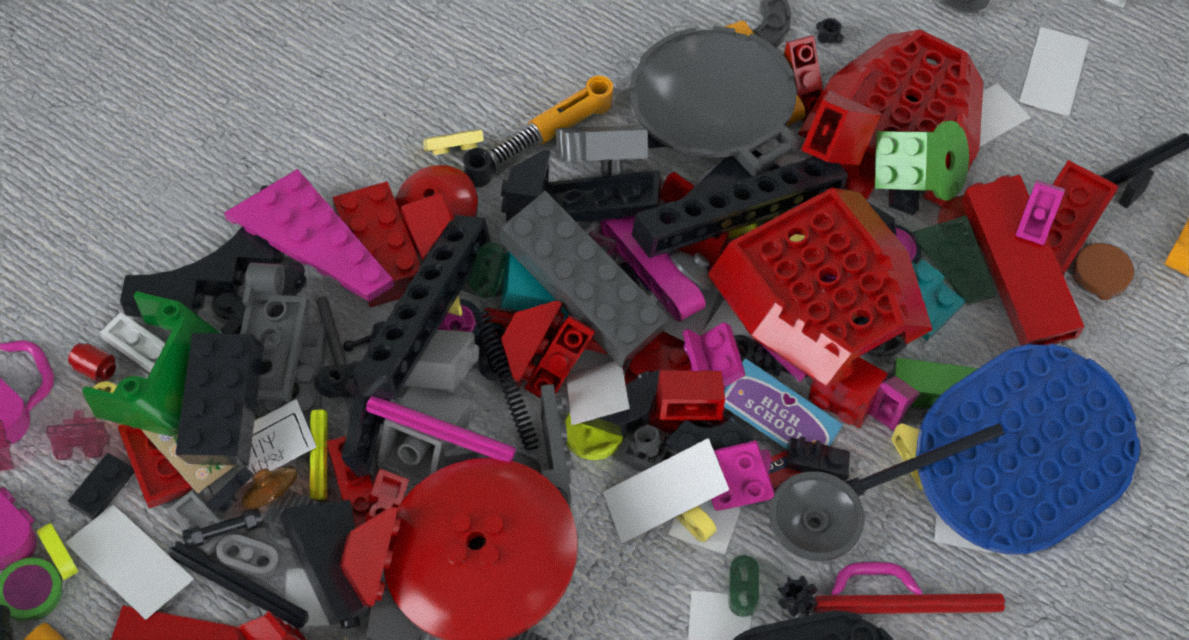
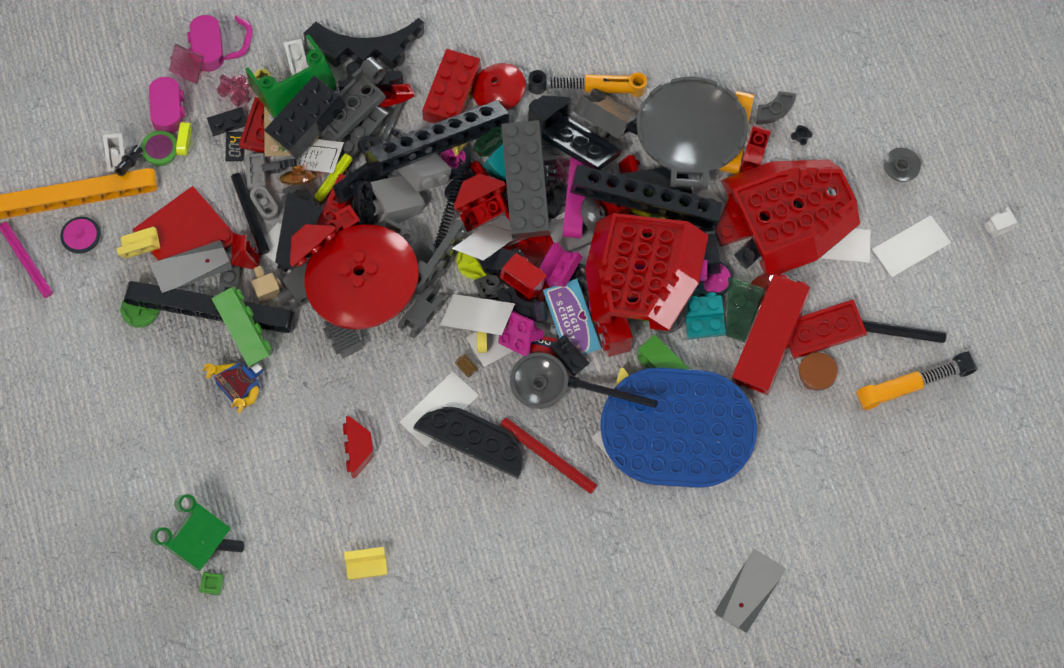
camera: 40 degrees right, 10 degrees up
(92, 362) = (269, 55): red brick -> none
(129, 561) = (211, 166): white sticker -> none
(135, 508) = (233, 152): none -> black sticker
(195, 536) = (246, 176): black bar -> none
(307, 229) = (417, 54): dark pink wing -> none
(318, 291) = (398, 94): none -> red slope
(384, 445) = (358, 199): none -> black beam
(426, 221) = (478, 94): red slope -> none
(440, 429) = (391, 206): dark pink axle -> none
(442, 143) = (530, 56): light yellow plate -> none
(591, 541) = (423, 311): none -> dark grey piece
(704, 562) = (465, 362): none -> pearl gold piece
(751, 585) = (474, 384): clear green beam -> none
(790, 591) = (496, 410): black gear -> none
(841, 130) = (730, 194): red slope -> none
(874, 568) = (547, 426): dark pink animal -> none
(893, 401) = (632, 353): dark pink slope -> none
(919, 158) = (760, 242): bright green piece -> none
(1040, 212) = (795, 314): dark pink slope -> none
(1136, 187) = (882, 341): black piece -> none

